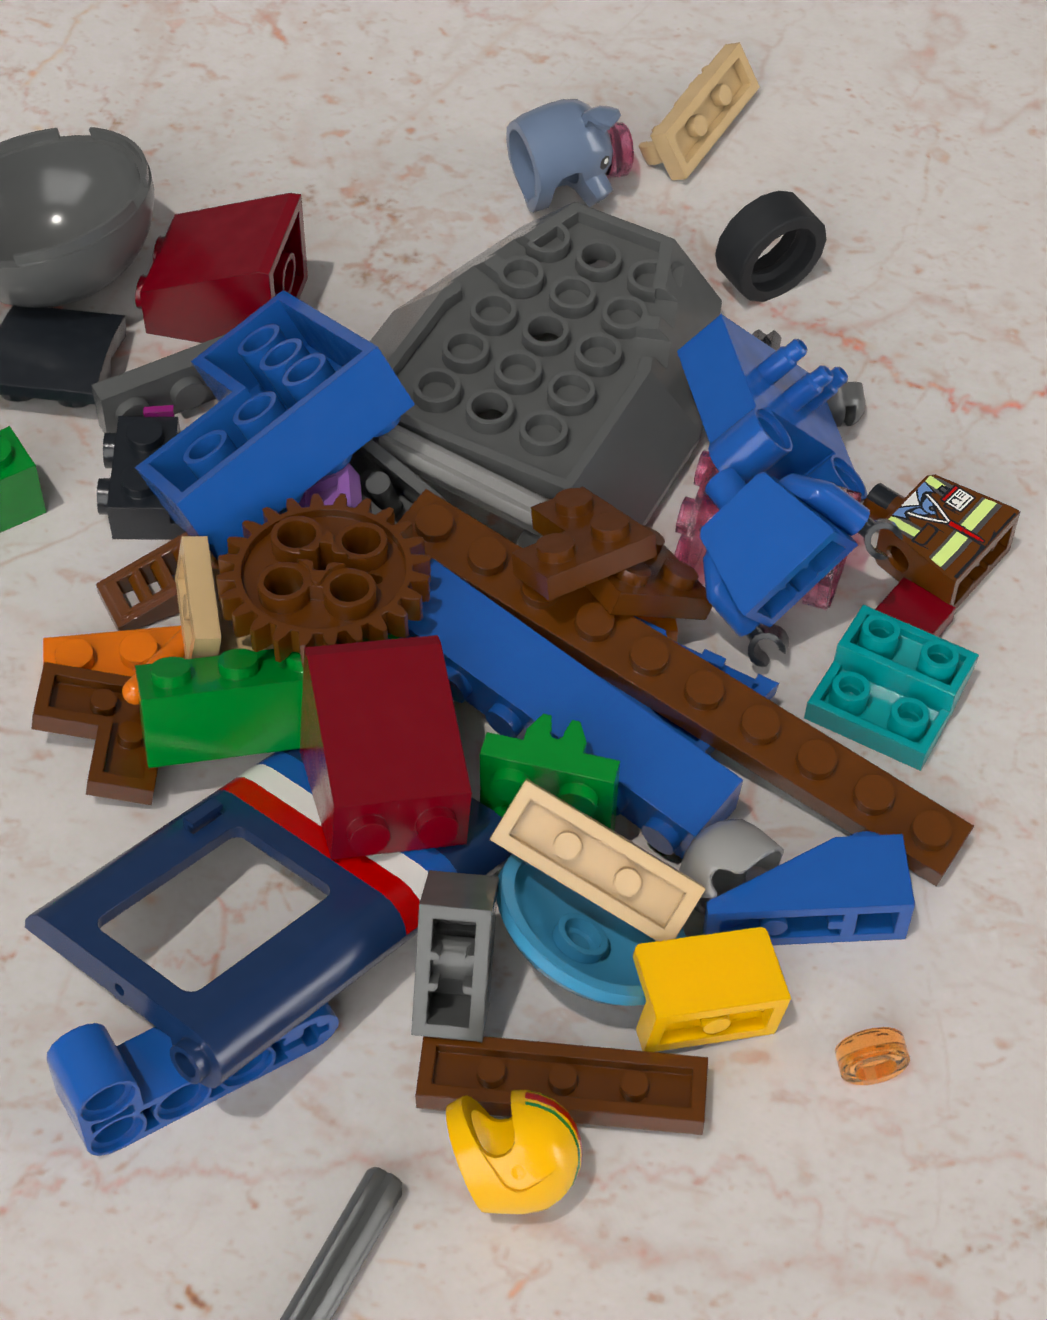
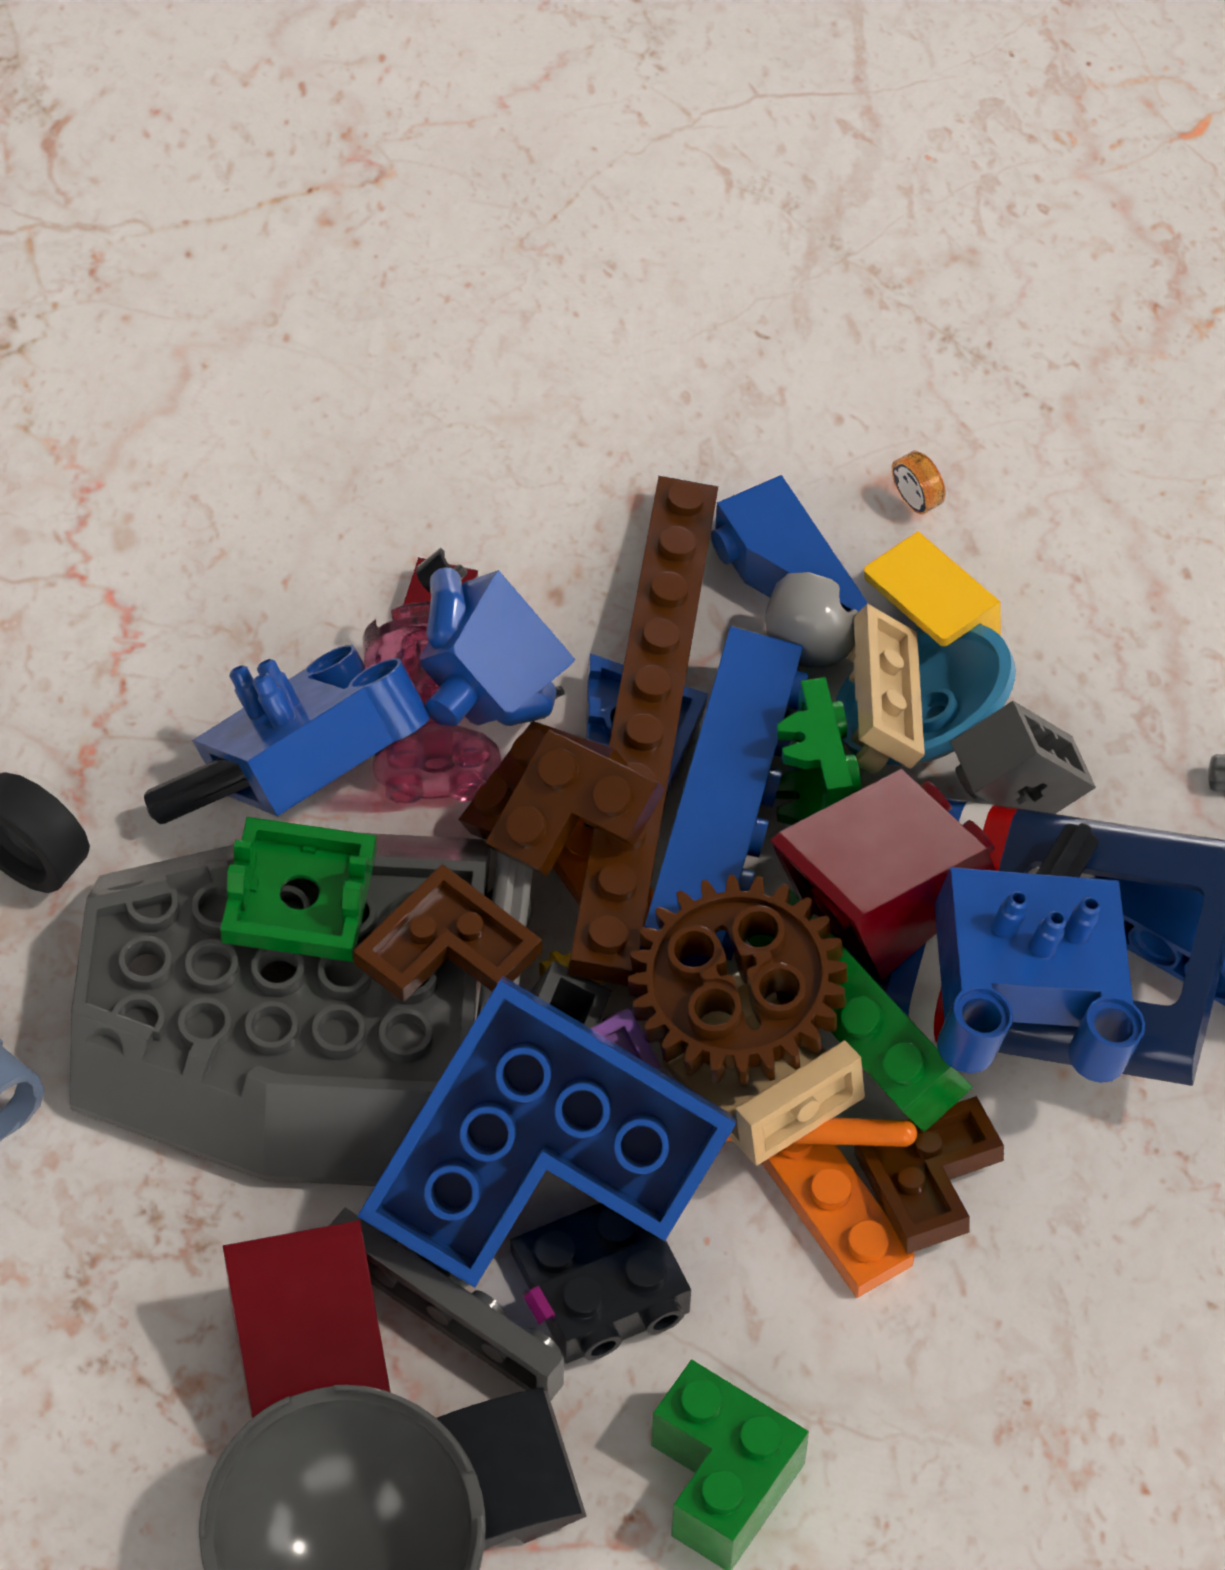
camera: 115 degrees left, 5 degrees up
(153, 567) = (742, 1200): reddish brown slope -> none
(202, 807) = (1037, 954): none -> blue piece
(507, 421) = (445, 922): none -> reddish brown plate
(515, 1161) = (1153, 669): yellow helmet -> none
(588, 1081) = (1064, 677): reddish brown plate -> none
(595, 314) = (285, 851): none -> green piece
(848, 404) = (189, 721): dark grey hinge -> none
(891, 687) = (547, 569): teal slope -> none
(947, 535) = (345, 583): torso -> none

